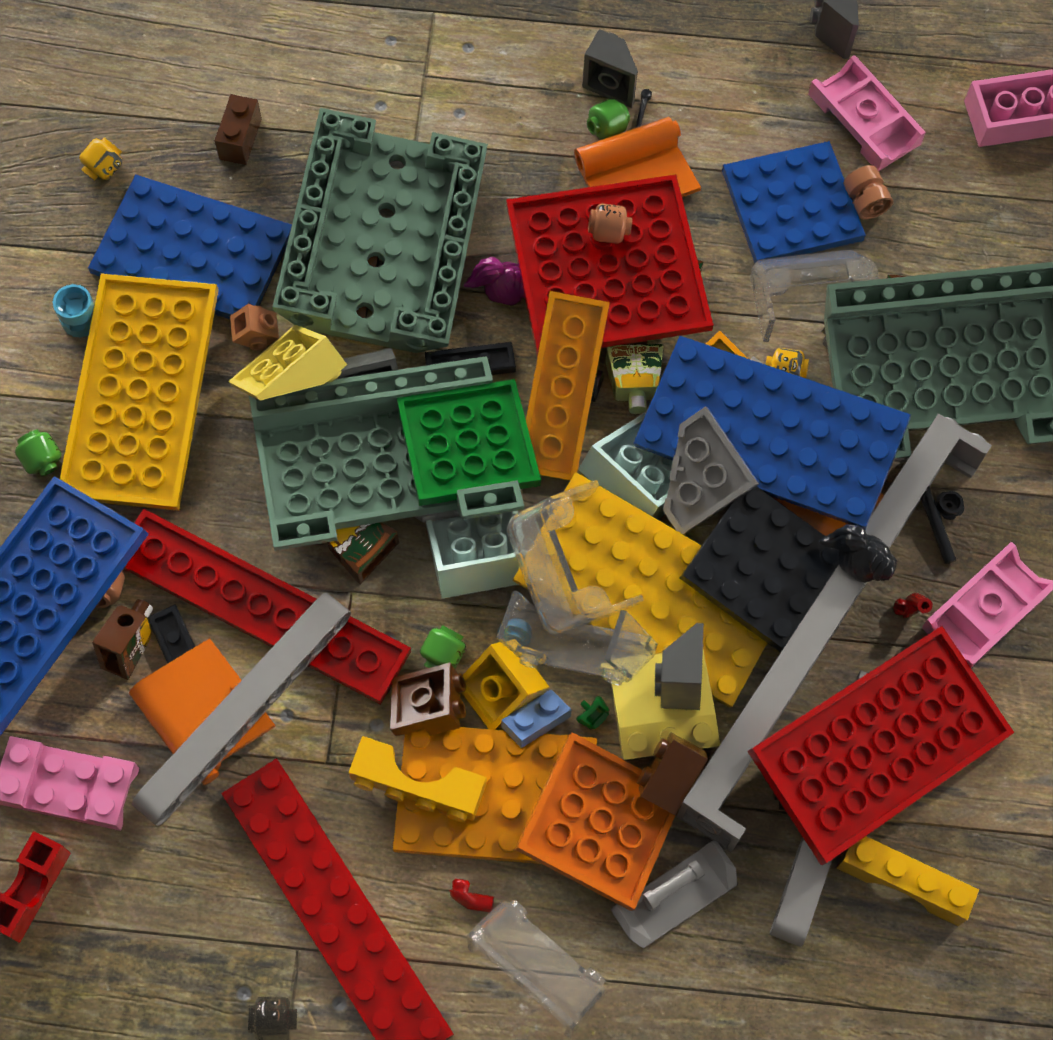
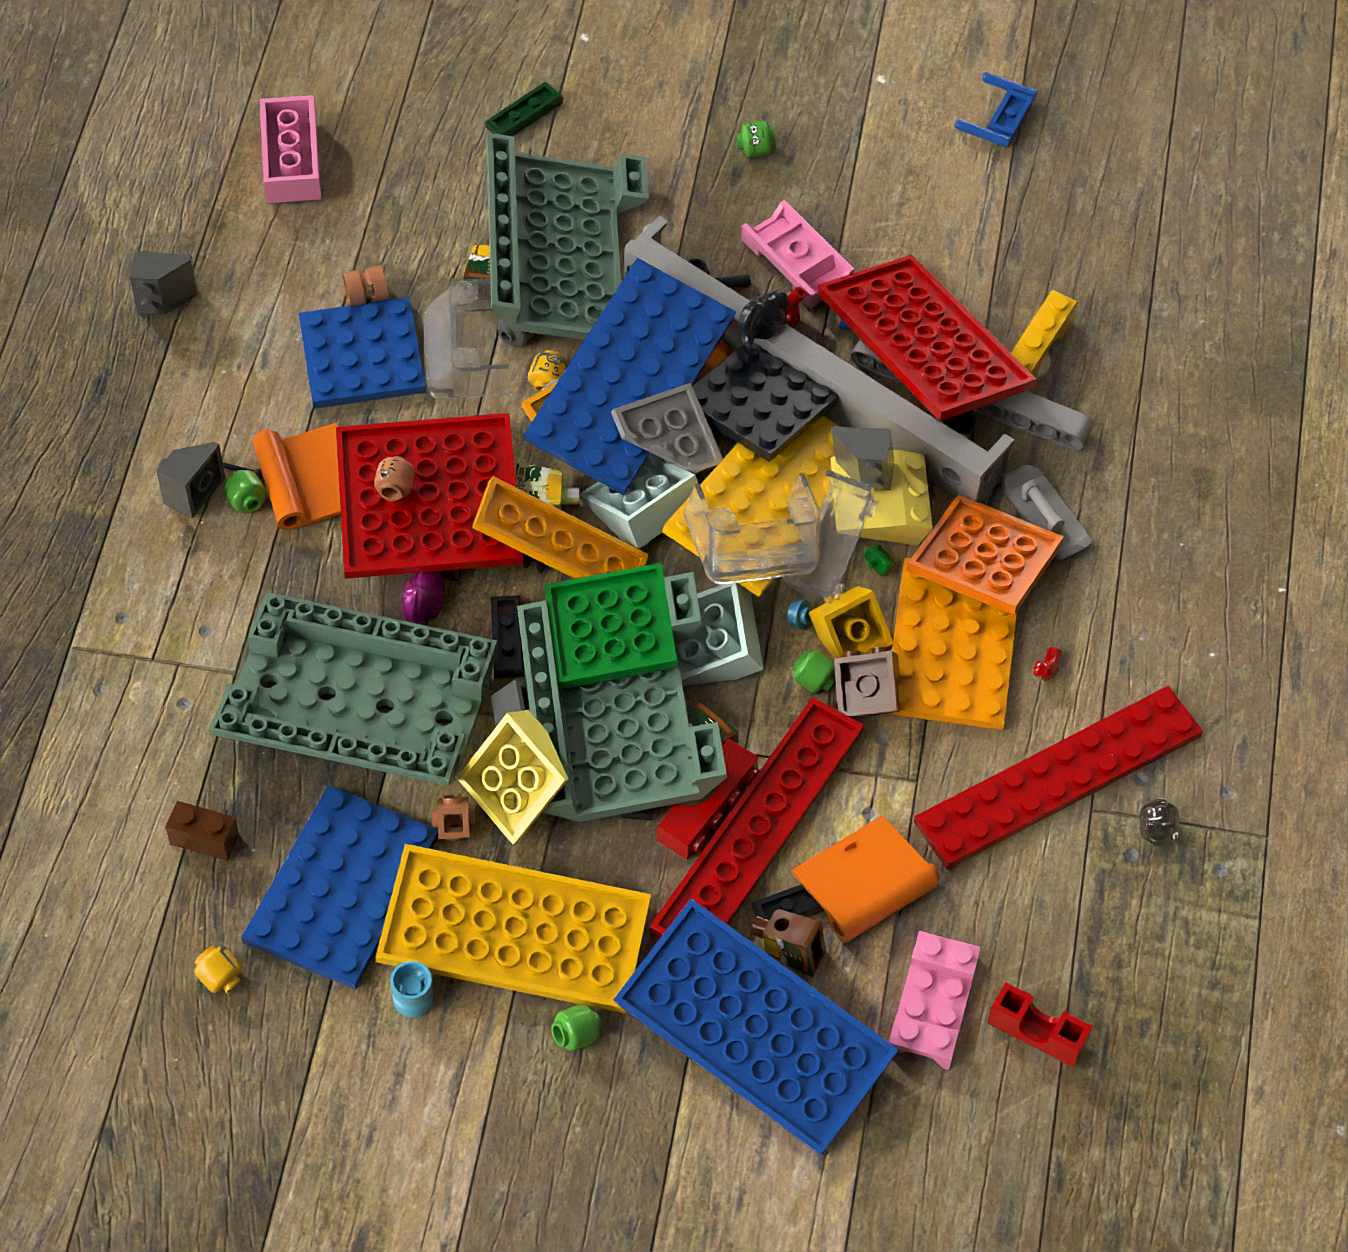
camera: 85 degrees left, 10 degrees down
(240, 709) = (874, 827): light grey beam -> none
(317, 573) = (686, 827): none -> red arch
(456, 793) = (933, 718): yellow arch -> none
(536, 718) = (891, 602): medium blue plate -> none
(538, 964) = (1113, 602): clear windscreen -> none
(671, 773) = (950, 486): reddish brown brick -> none
(868, 113) = (272, 276): bright pink piece -> none

